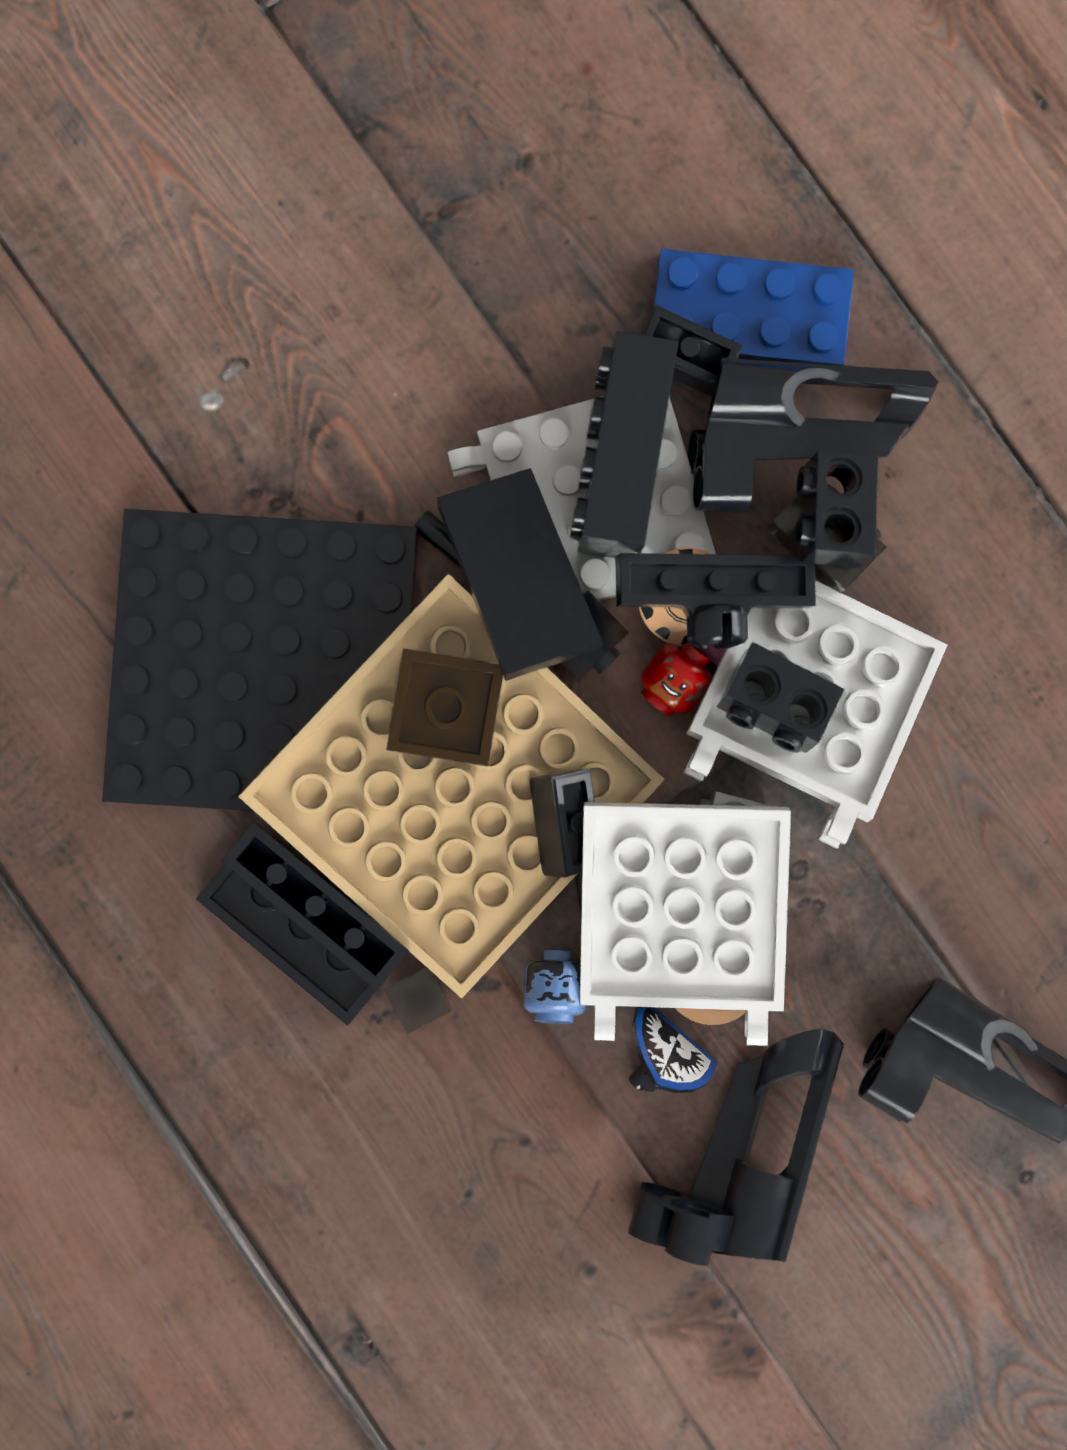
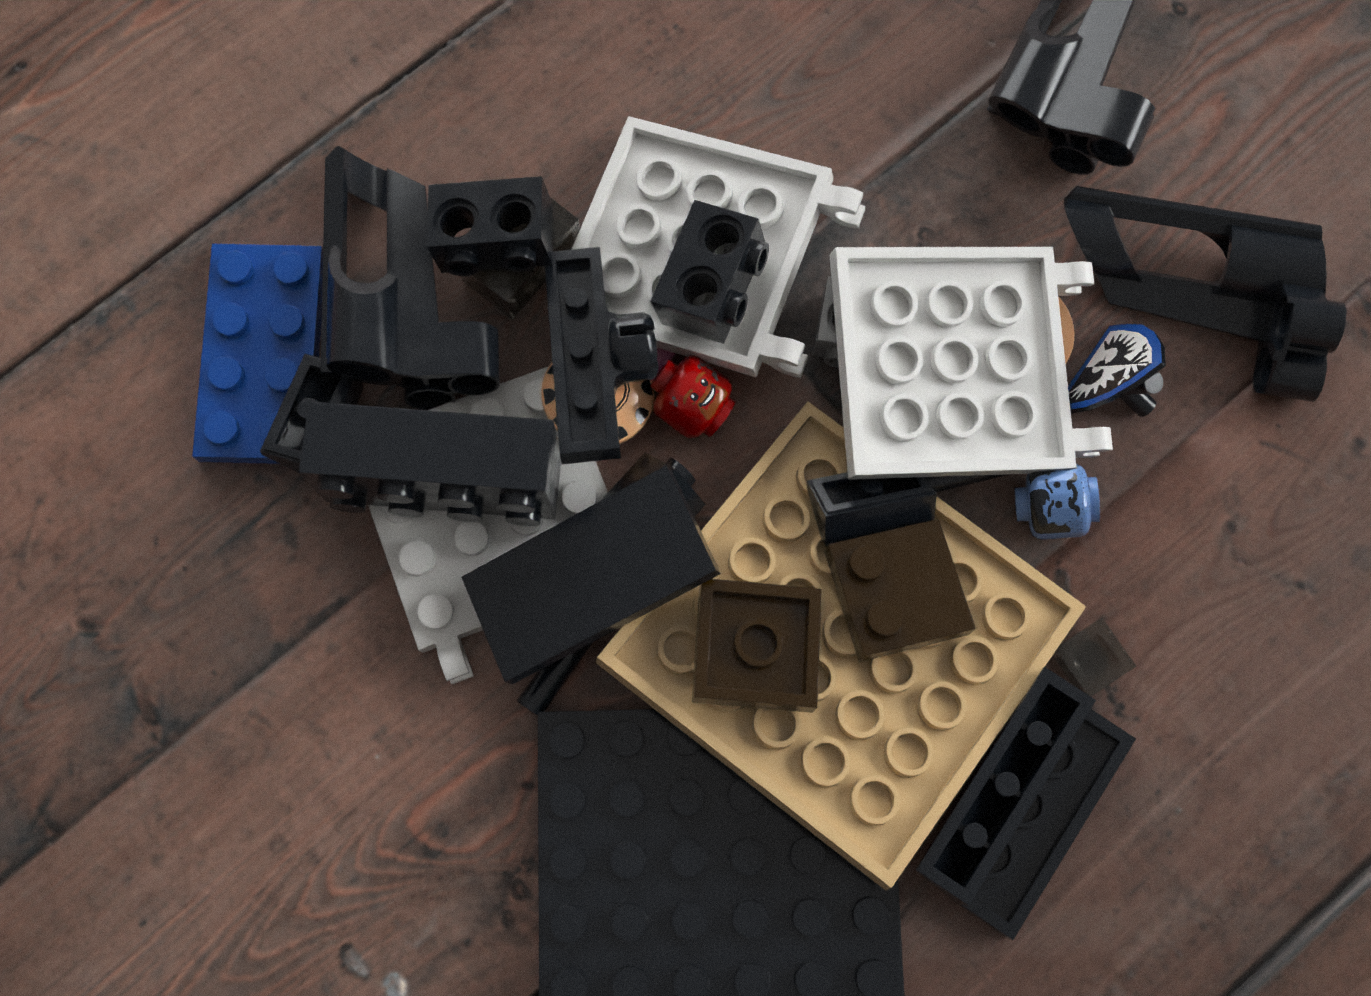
camera: 100 degrees left, 10 degrees down
(486, 836) = (899, 590): none -> dark brown plate

